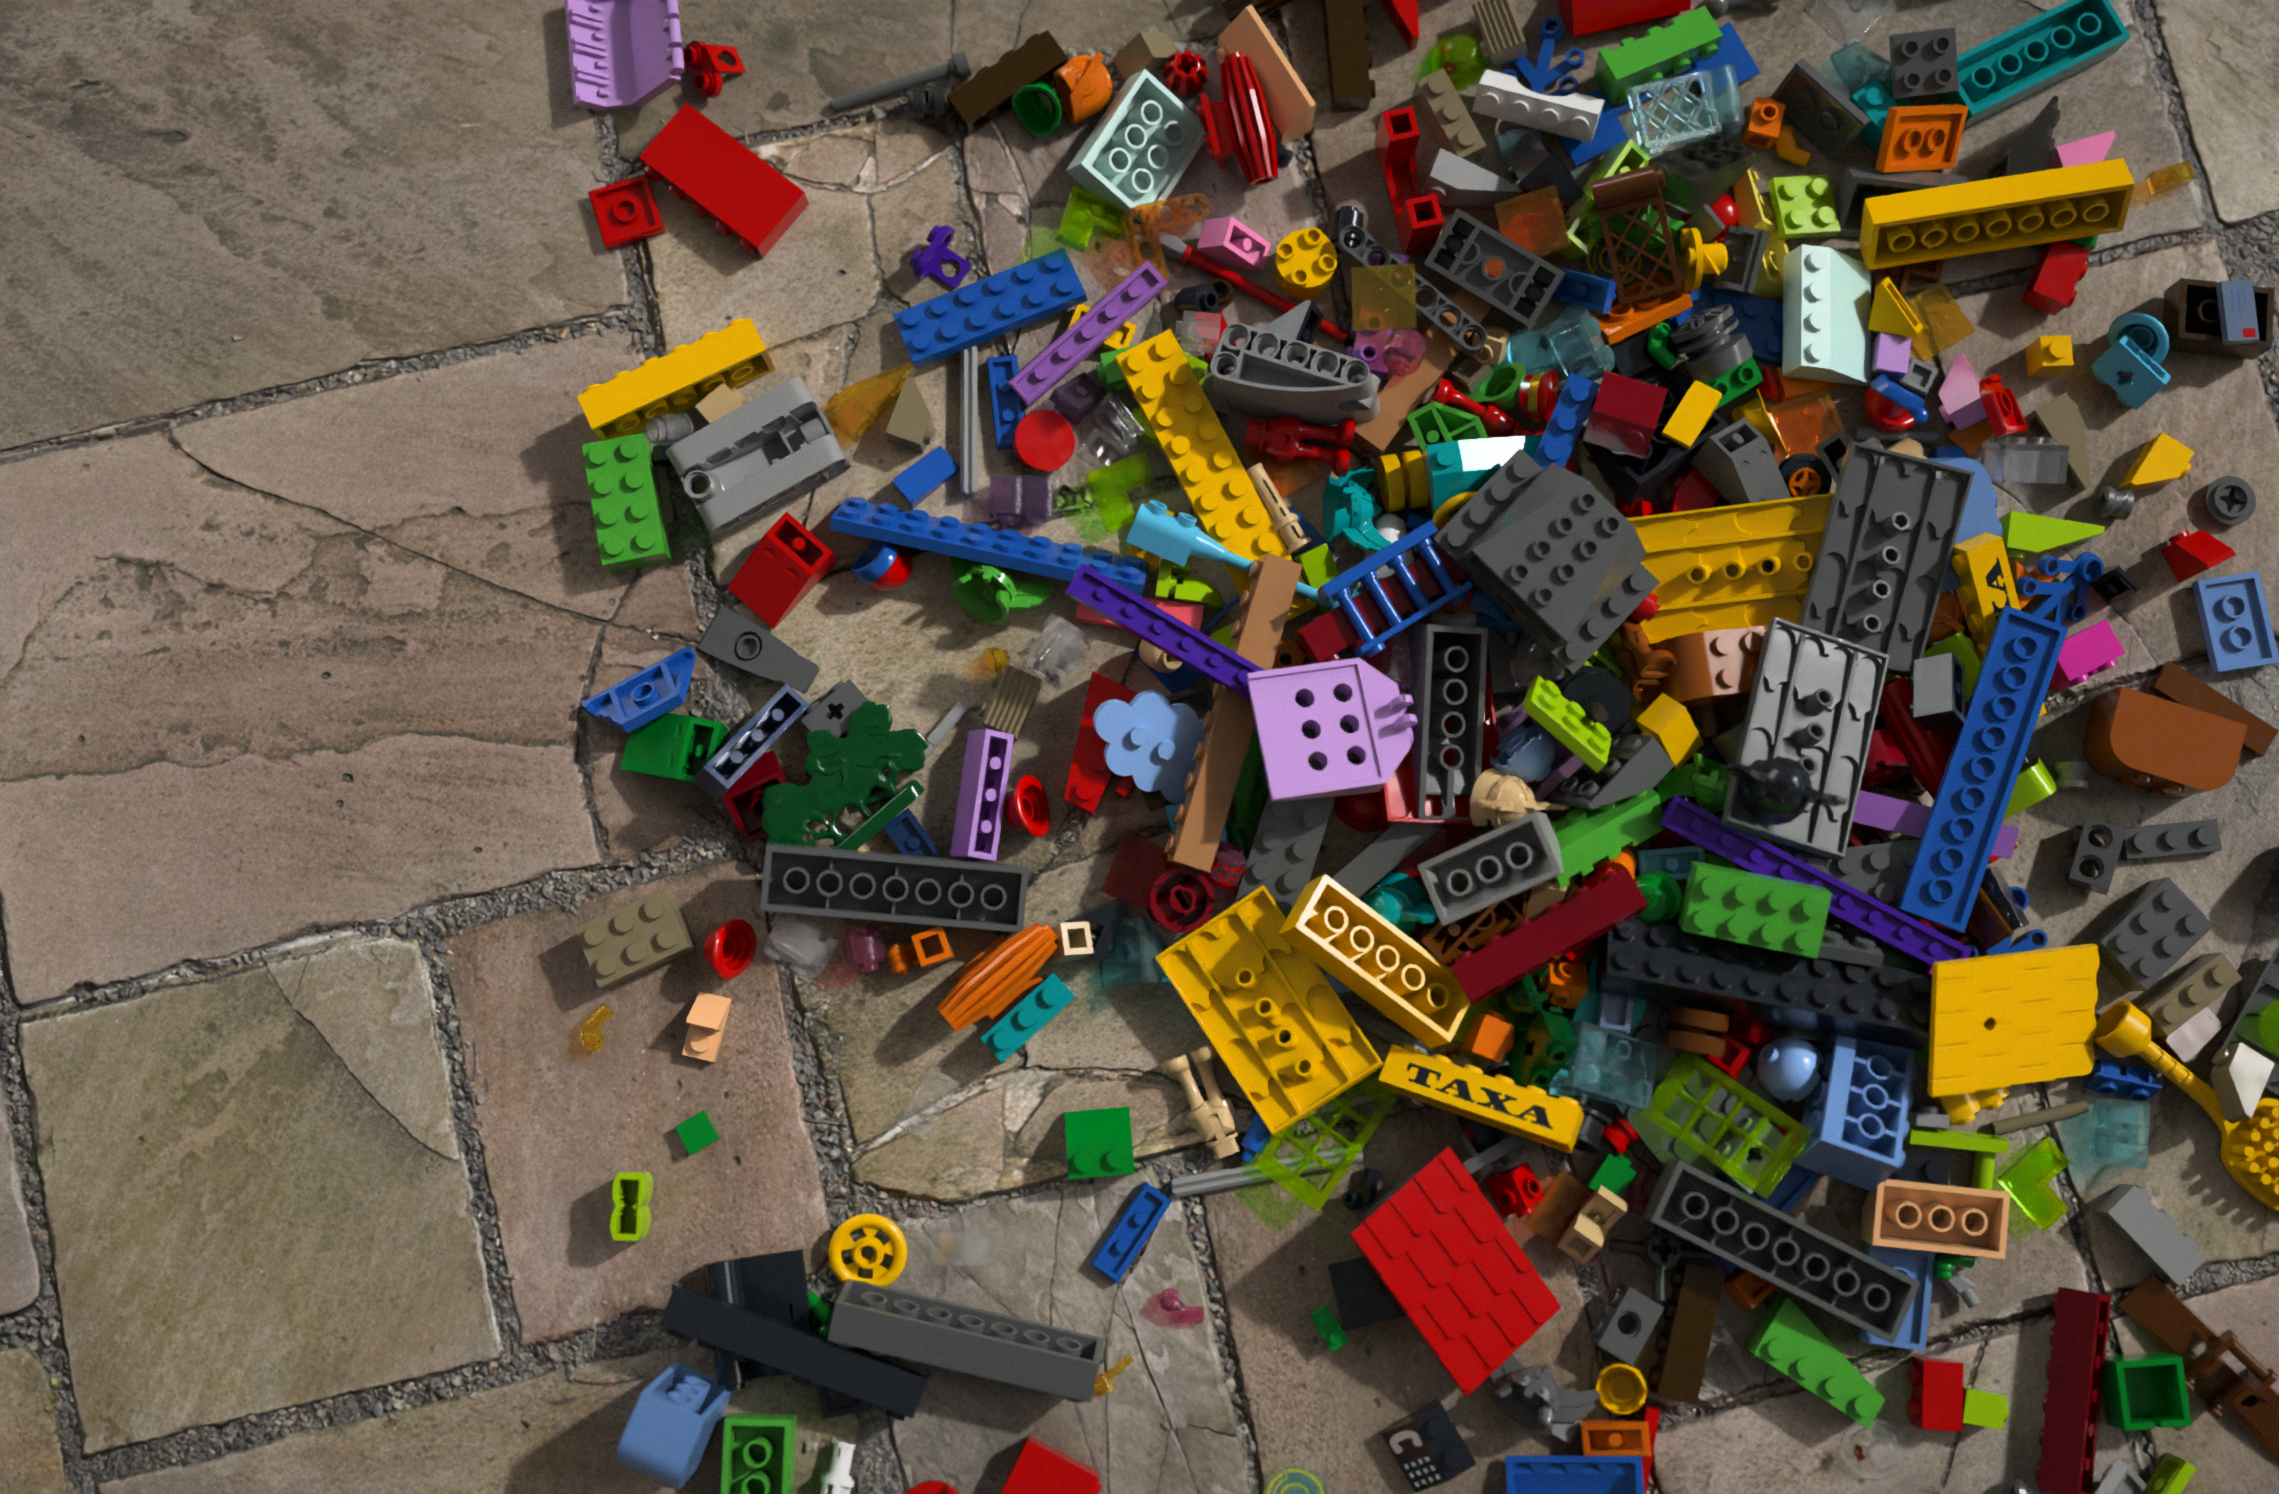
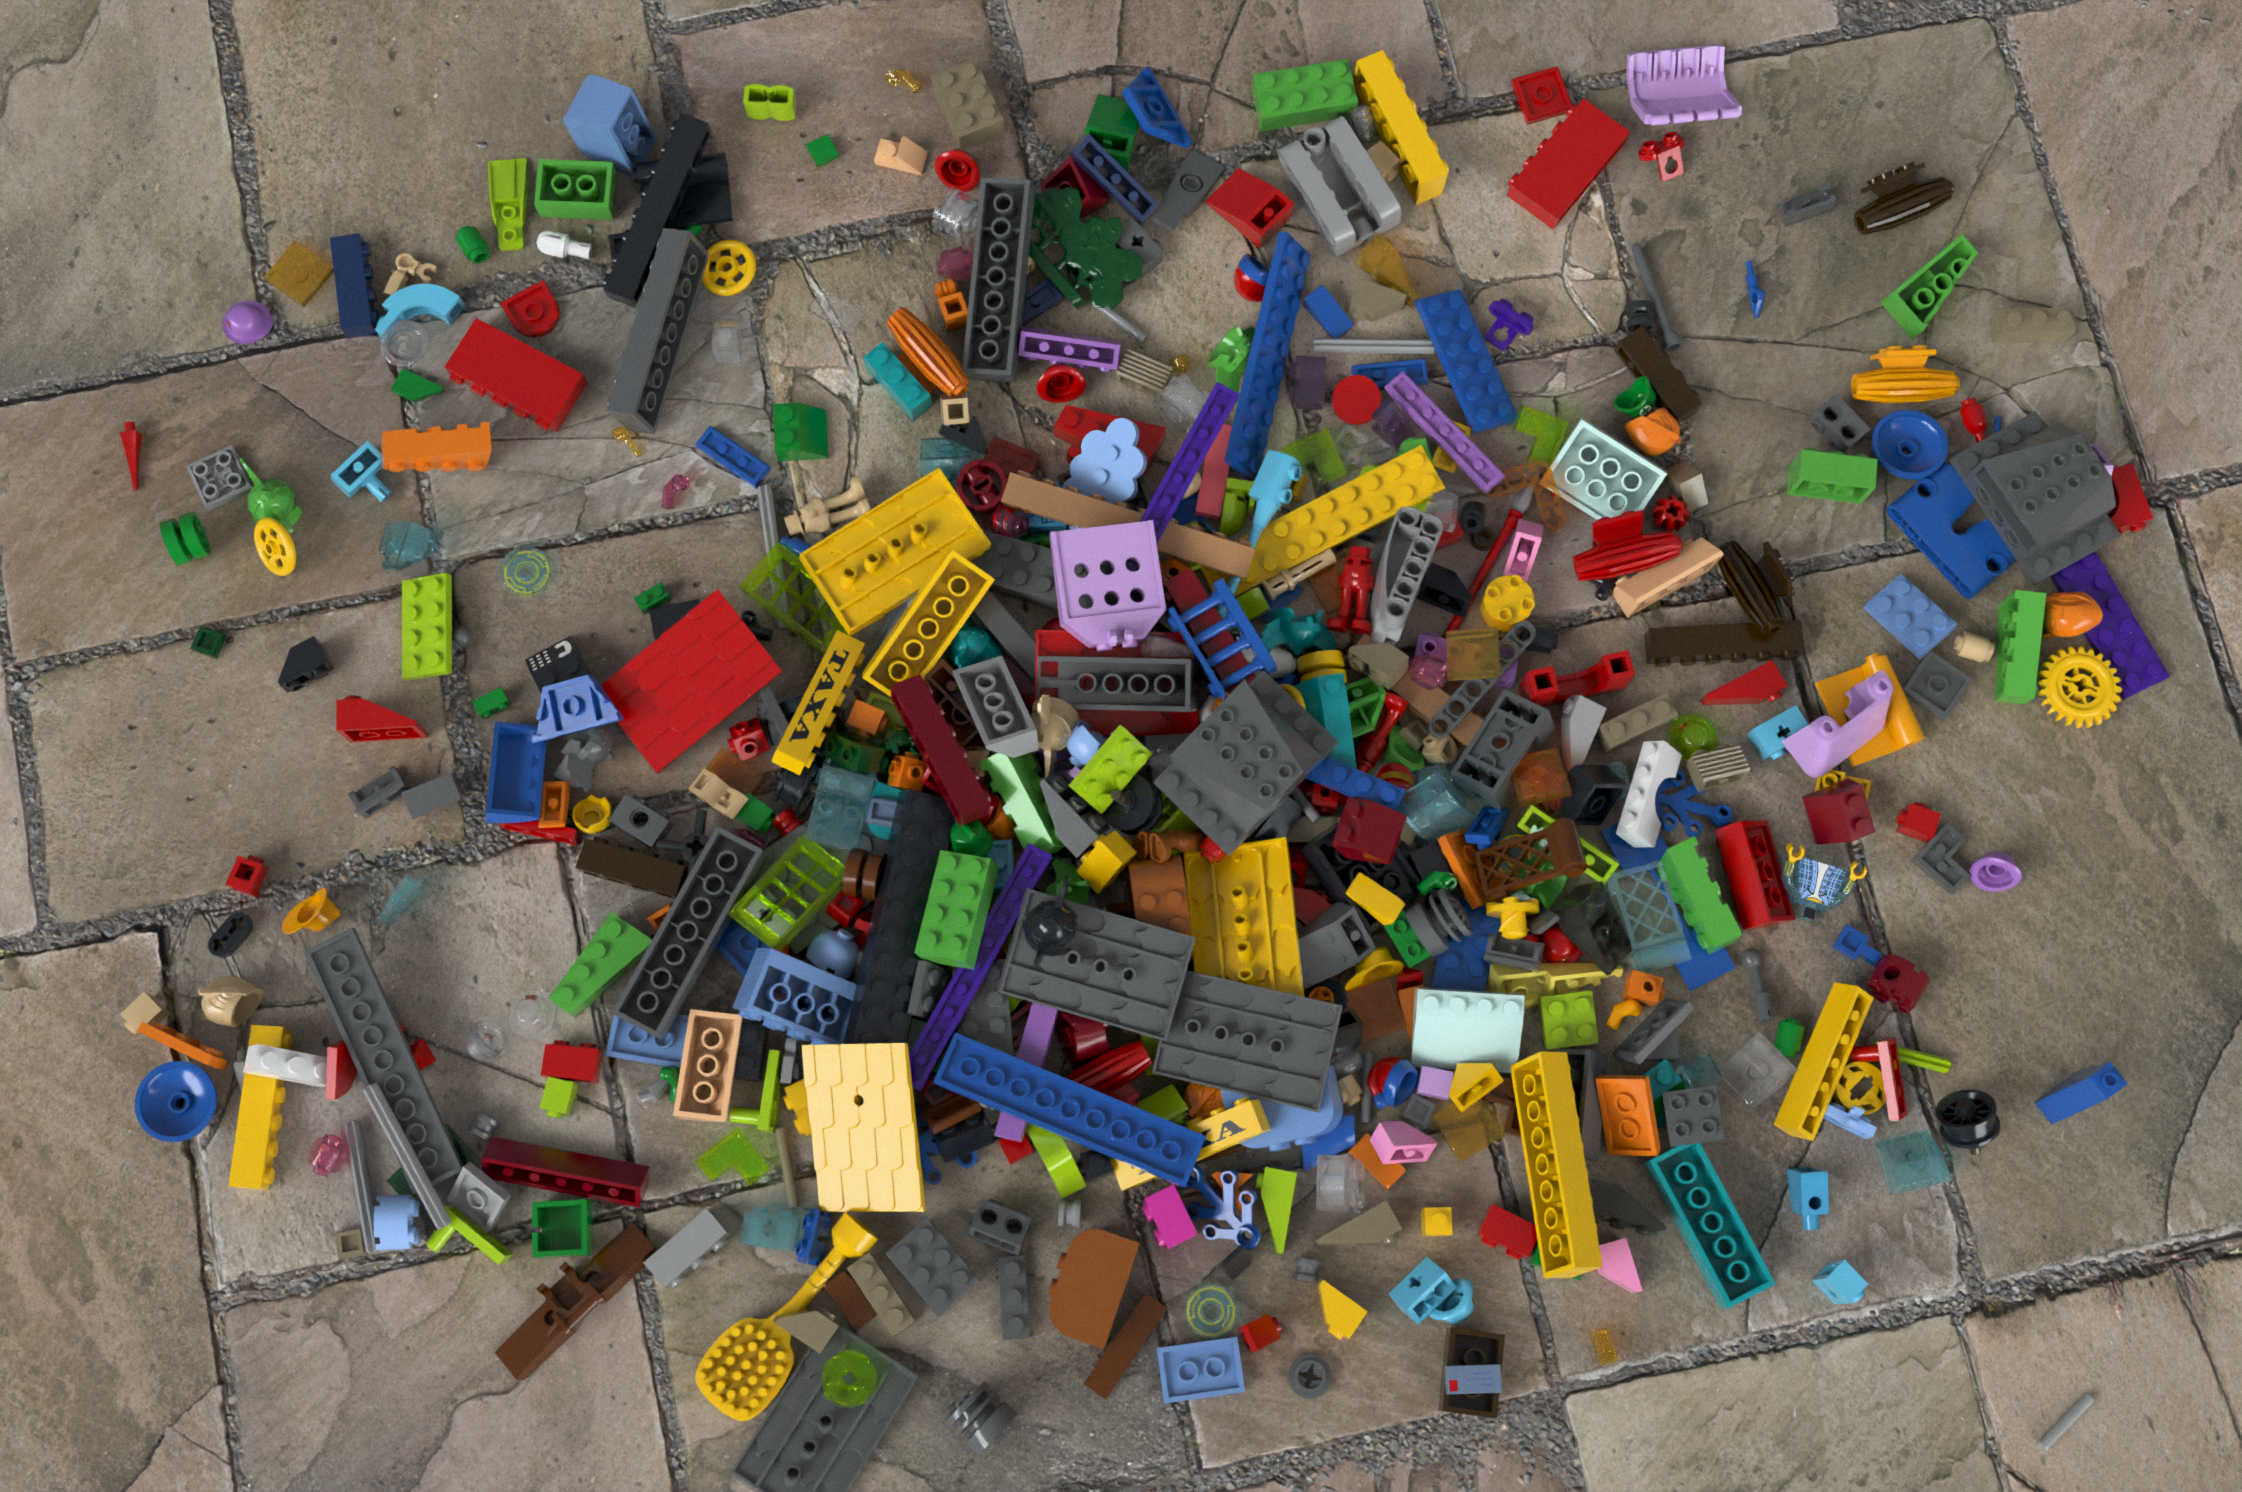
camera: 90 degrees right, 5 degrees down
(1398, 406) = (1380, 662): none -> dark tan slope
(1498, 1418) = (573, 708): none -> wing
(1938, 691) = (1134, 1079): brick -> none
(2001, 407) = (1385, 1163): red tile -> none
(2149, 621) = (1227, 1311): none -> clear light blue tile

